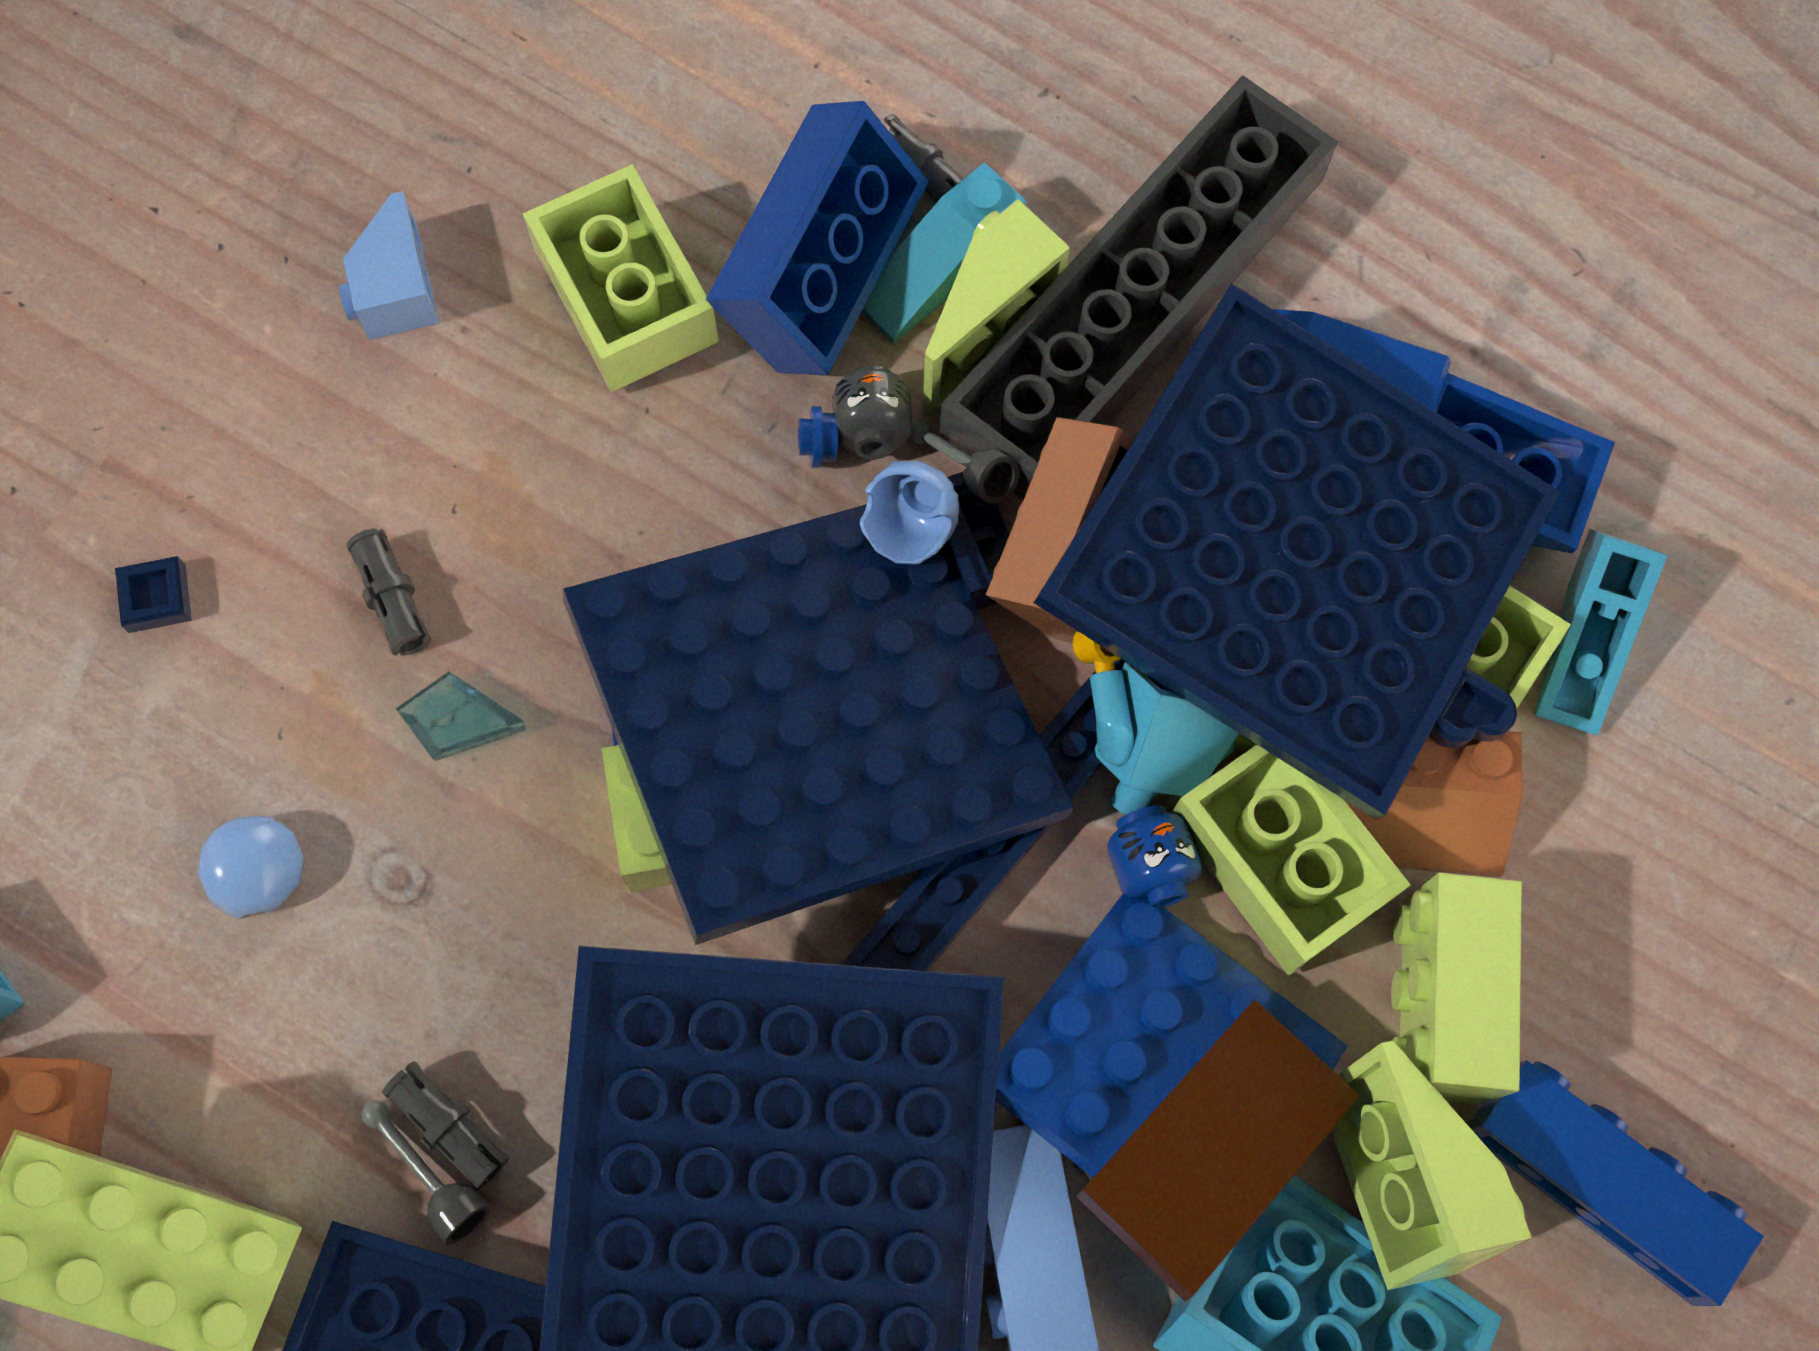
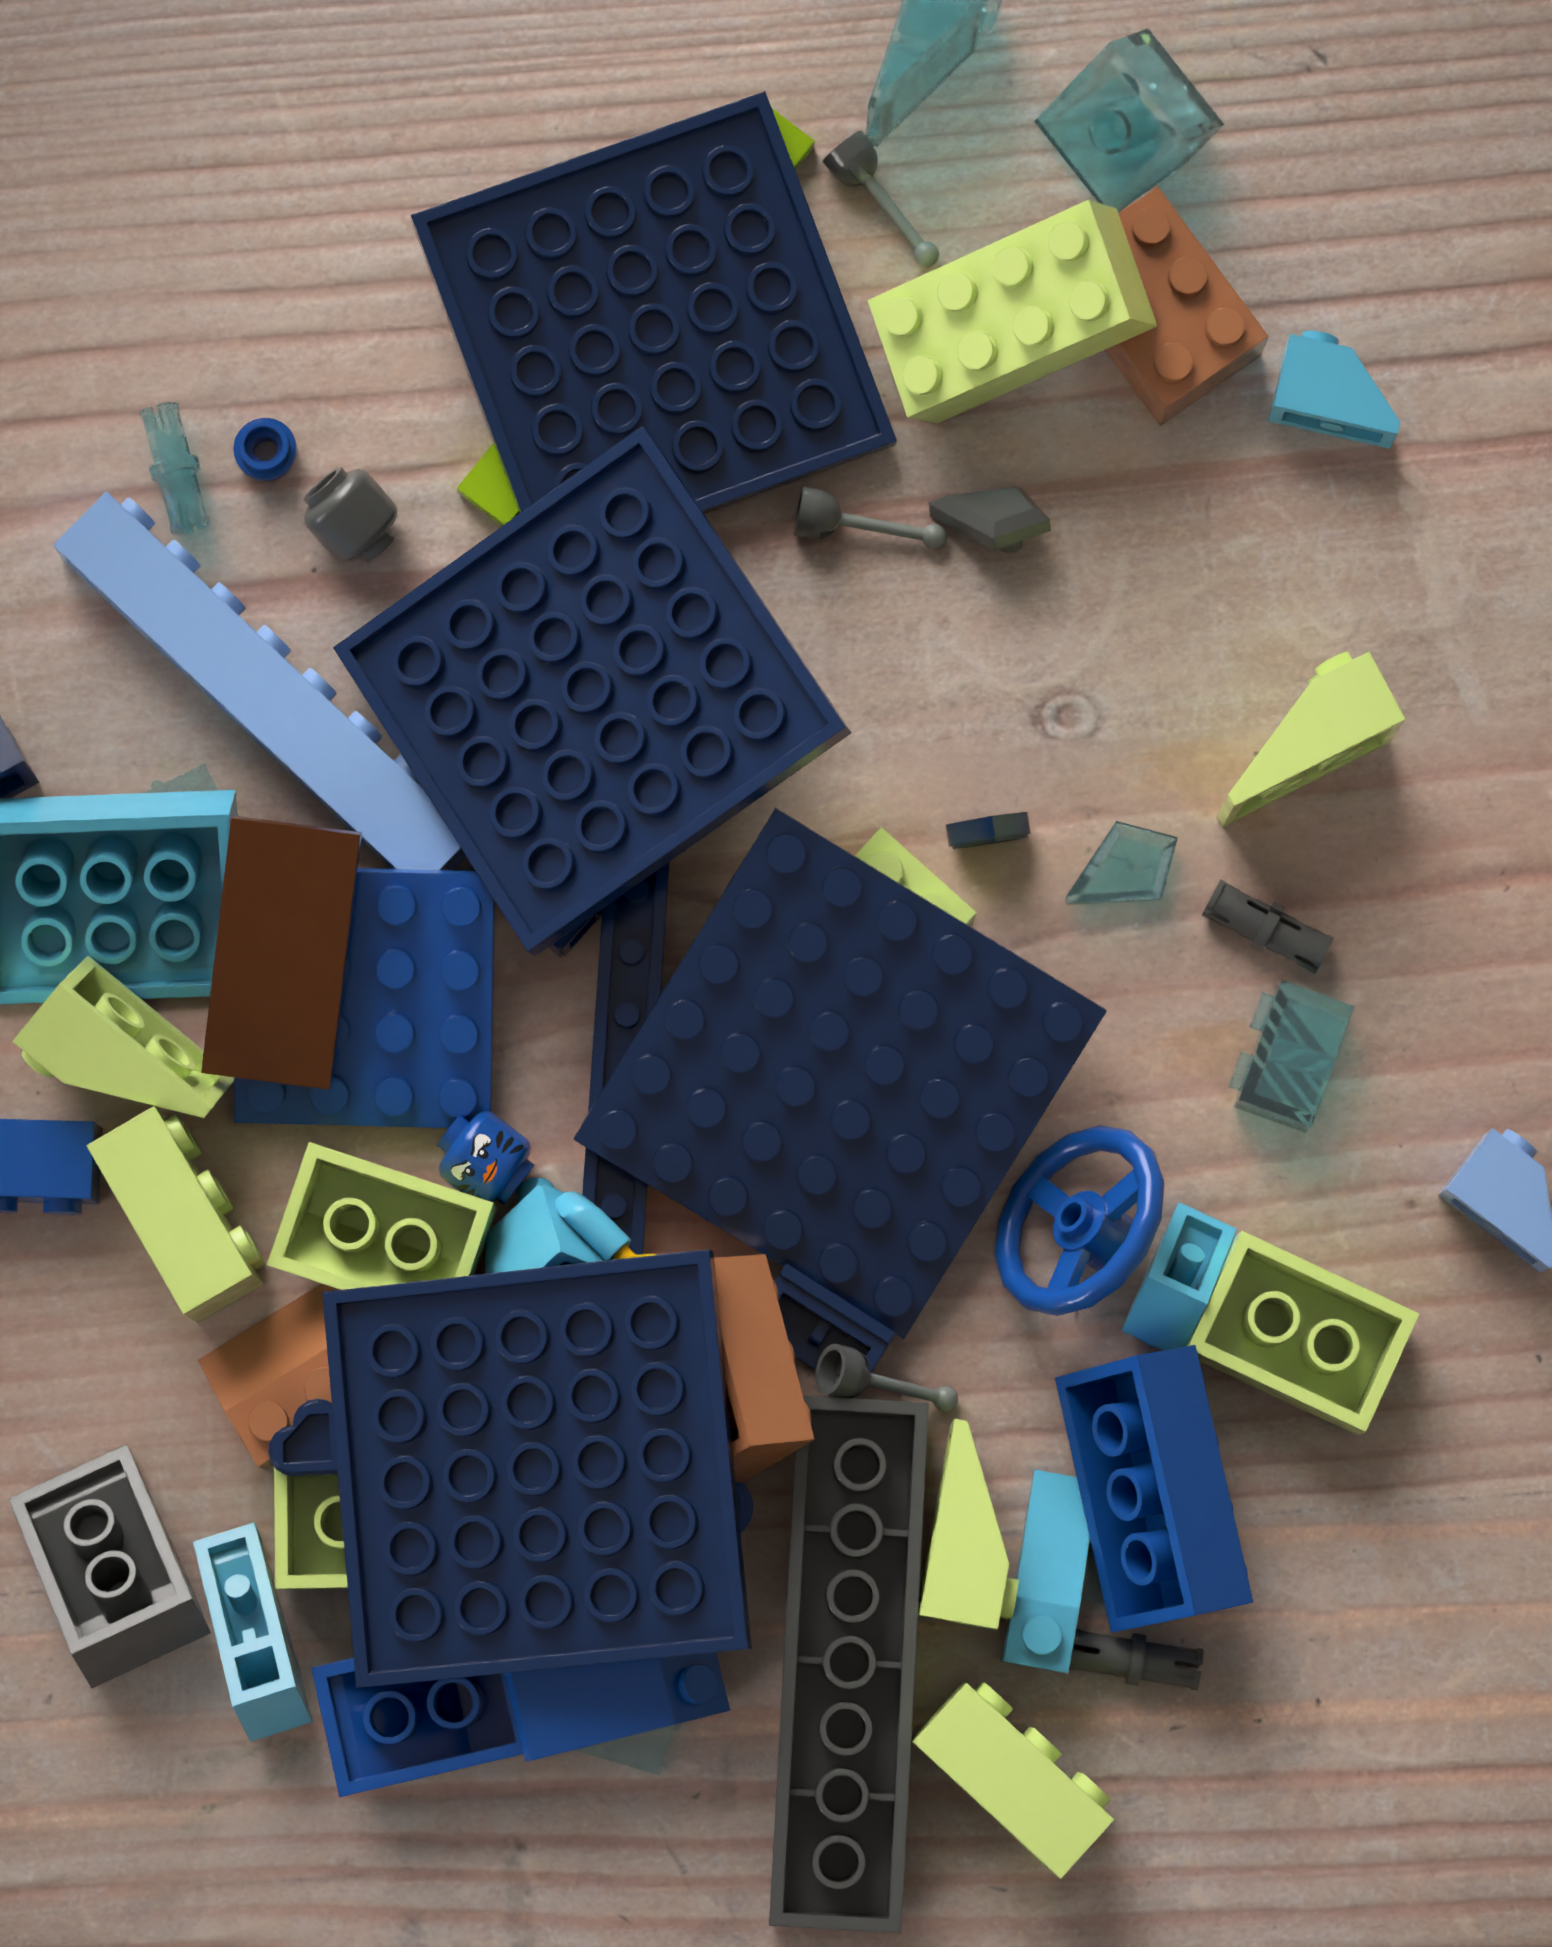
camera: 145 degrees right, 10 degrees up
(153, 594) = (1456, 786): dark blue tile -> none
(216, 693) = (1331, 724): none -> yellowish green slope
(250, 865) = (1184, 639): light blue hair -> none
(311, 1087) = (993, 517): none -> dark grey piece
(445, 1125) = (872, 565): dark grey pin -> none
(455, 479) = (1291, 1056): none -> clear light blue brick
(538, 824) = (988, 830): none -> dark blue tile
(677, 381) = (1179, 1279): none -> medium azure slope
(714, 454) = (1085, 1225): none -> blue piece
(818, 437) = (1022, 1324): blue plate -> none
(872, 412) = (994, 1376): dark grey head -> none
(909, 512) = (881, 1284): light blue hair -> none
(1078, 125) = (1014, 1776): none -> yellowish green brick
(1688, 760) = (108, 1567): none -> dark grey slope

